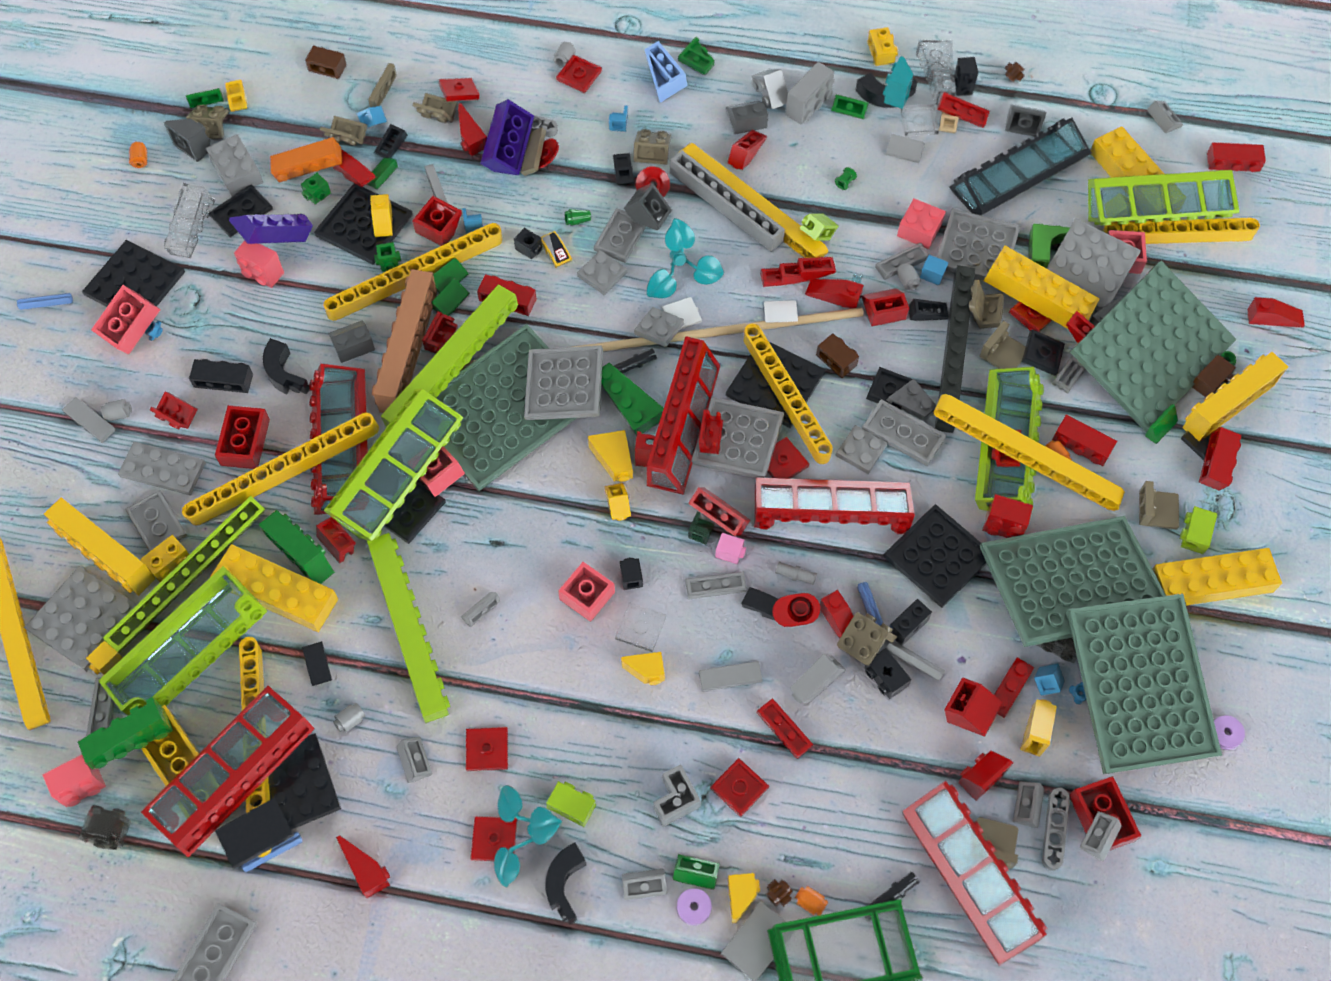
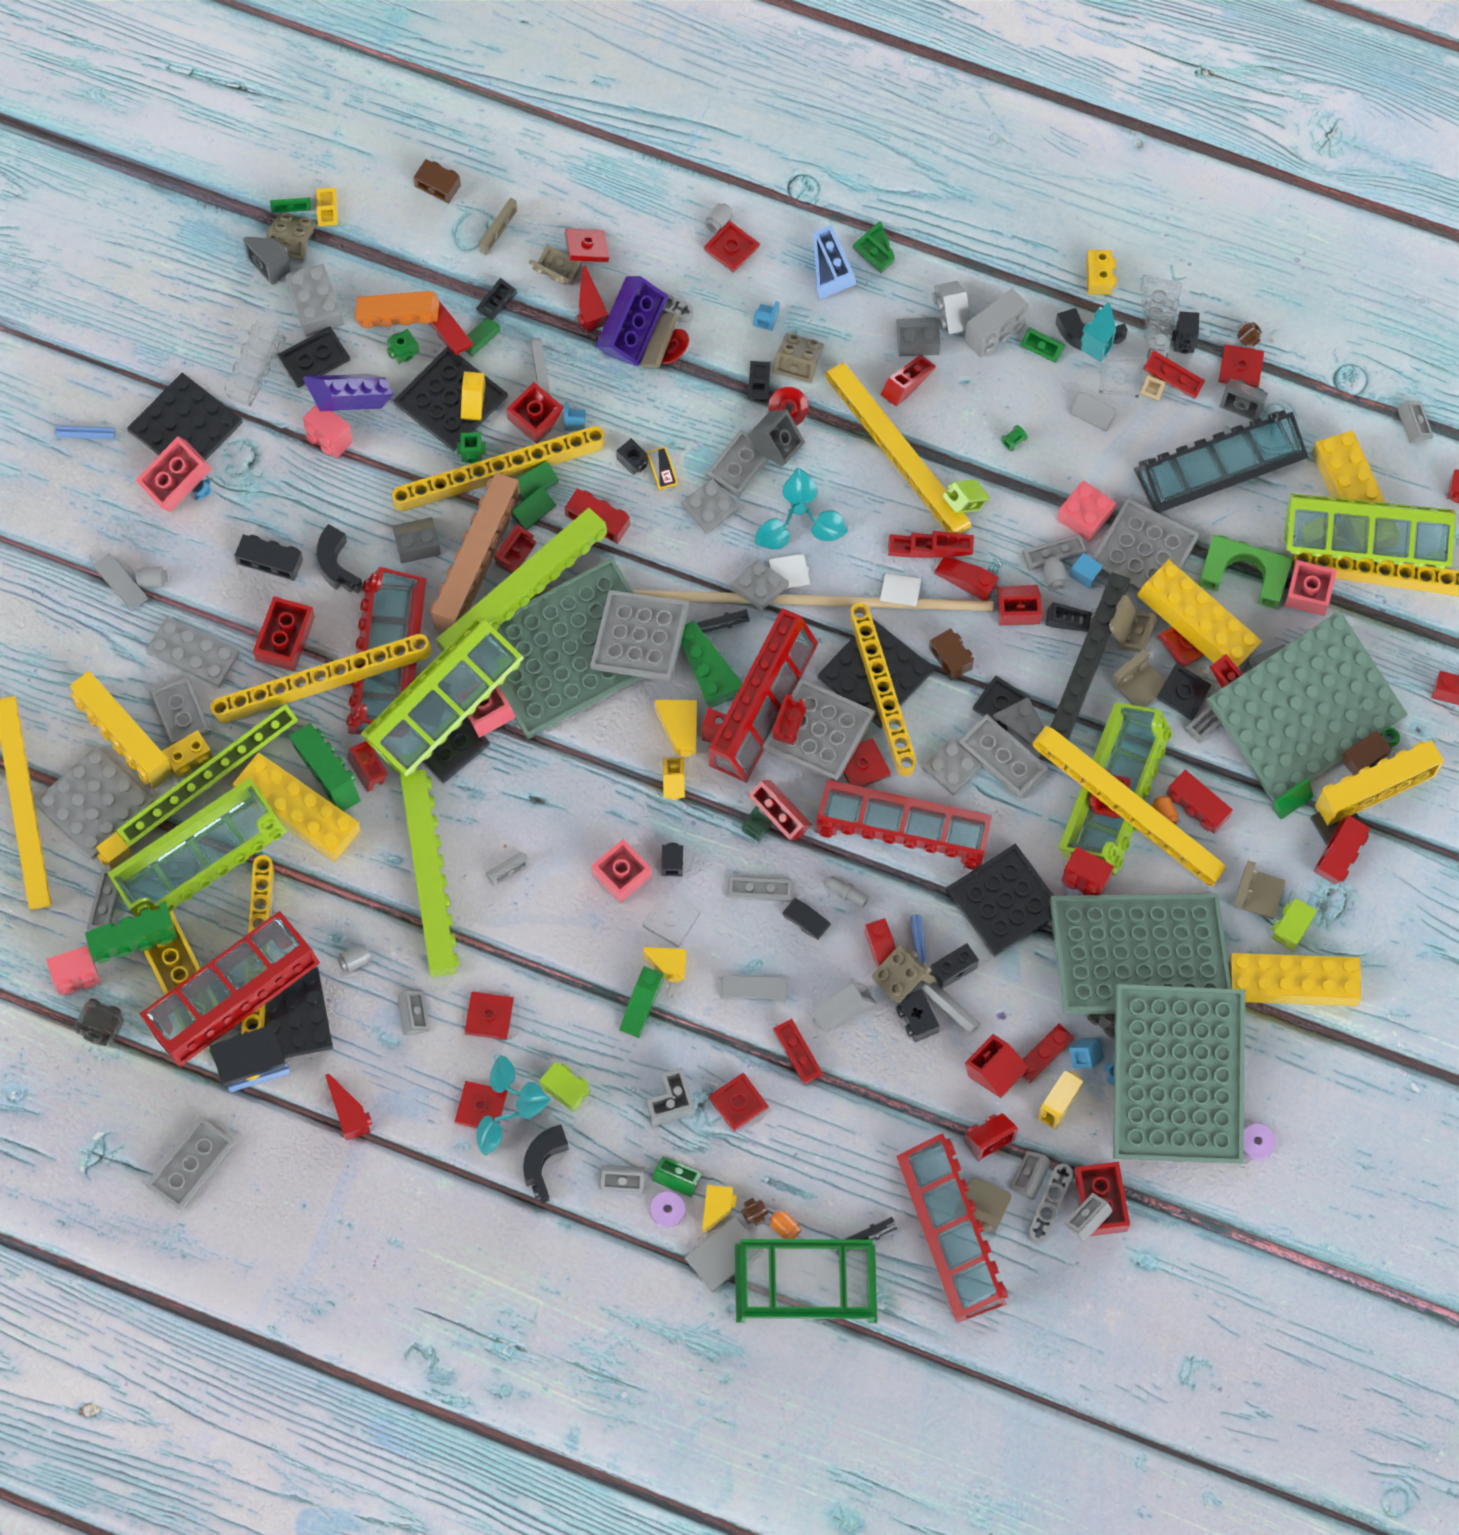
camera: 10 degrees right, 5 degrees up
(138, 155) = (206, 267): orange brick -> none
(175, 411) = (214, 589): red bracket -> none
(317, 663) = (329, 895): black slope -> none
(346, 130) = (448, 277): dark tan bracket -> none
(372, 116) = (480, 263): dark azure panel -> none
(577, 216) = (693, 432): green cone -> none
(629, 708) = (641, 1001): none -> green slope
(727, 201) = (868, 443): light grey brick -> none
(730, 548) = (783, 852): bright pink brick -> none
(796, 610) = (837, 931): red piece -> none
(1013, 94) = (1241, 364): none -> red plate
(1094, 261) = (1266, 596): light grey plate -> none

